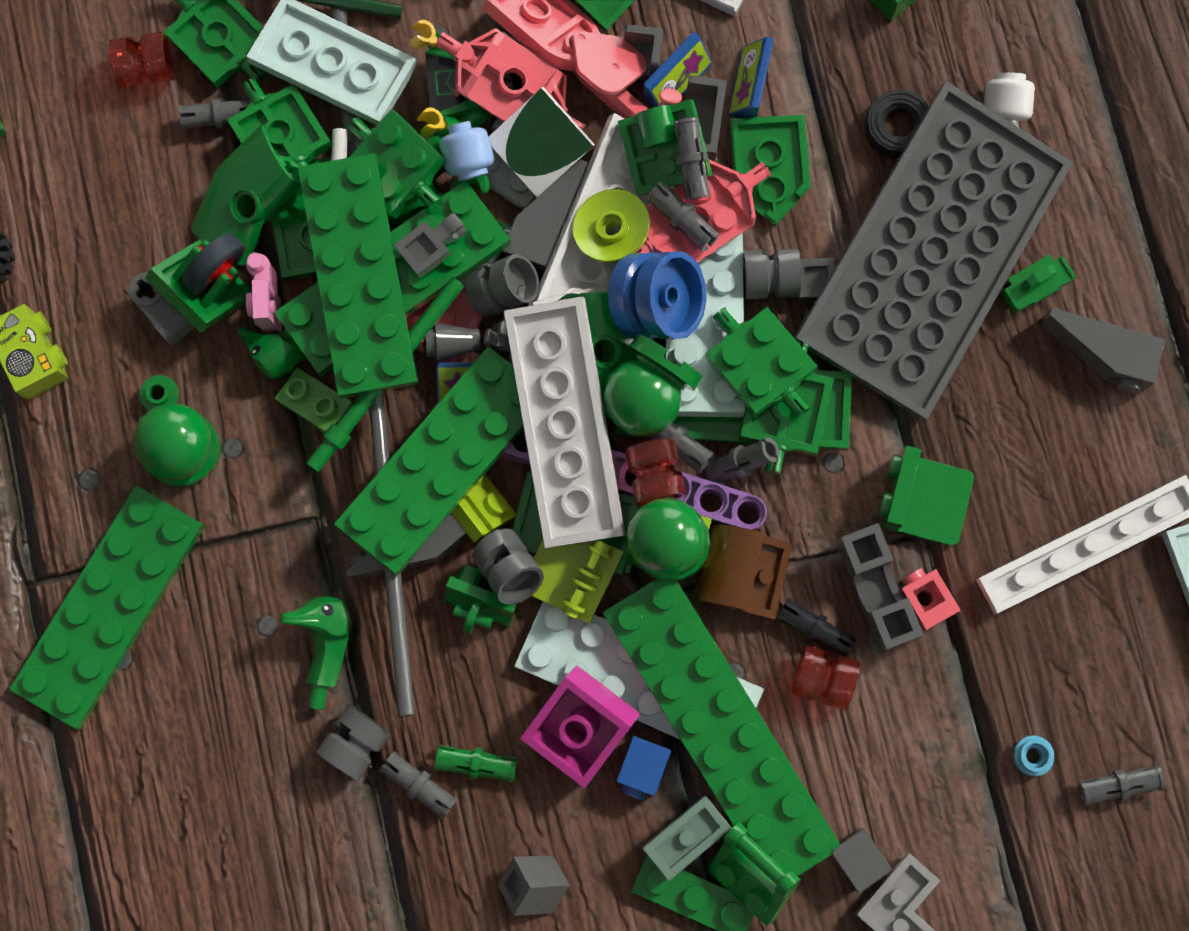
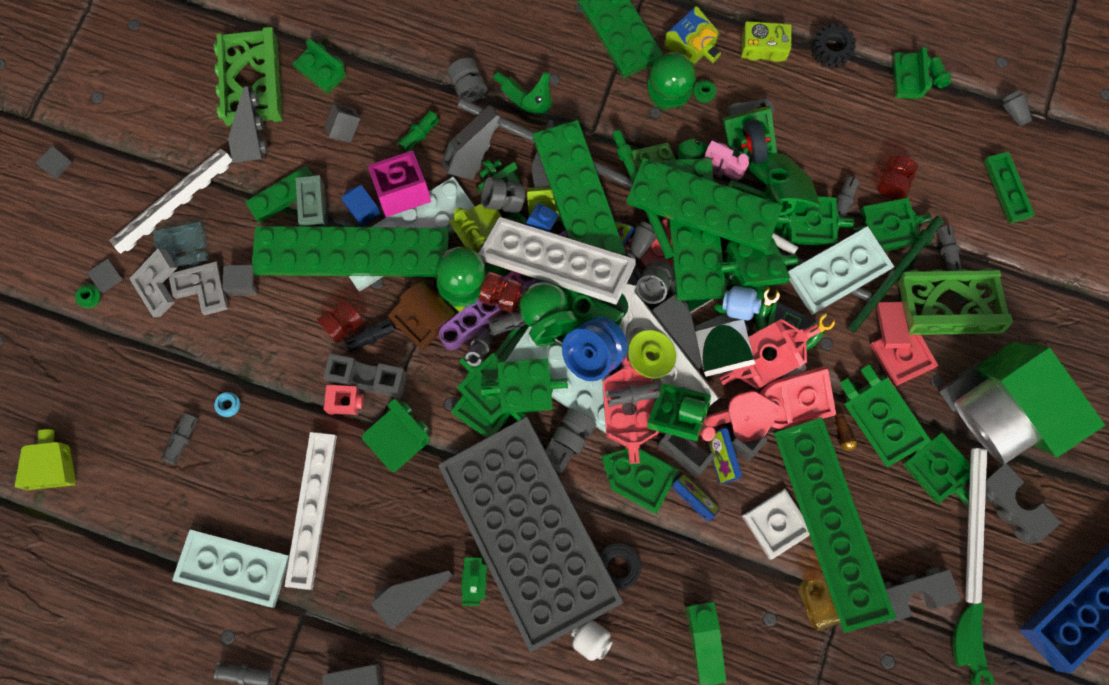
camera: 120 degrees right, 5 degrees down
(81, 456) = (694, 37): none -> torso
(418, 785) = (426, 100): dark grey pin -> none
(426, 248) = (698, 245): dark grey plate -> none
(462, 659) = (468, 147): none -> dark grey slope
(512, 490) = (542, 218): none -> blue brick
(691, 158) = (661, 415): dark grey pin -> none
(753, 875) = (263, 220): green plate -> none

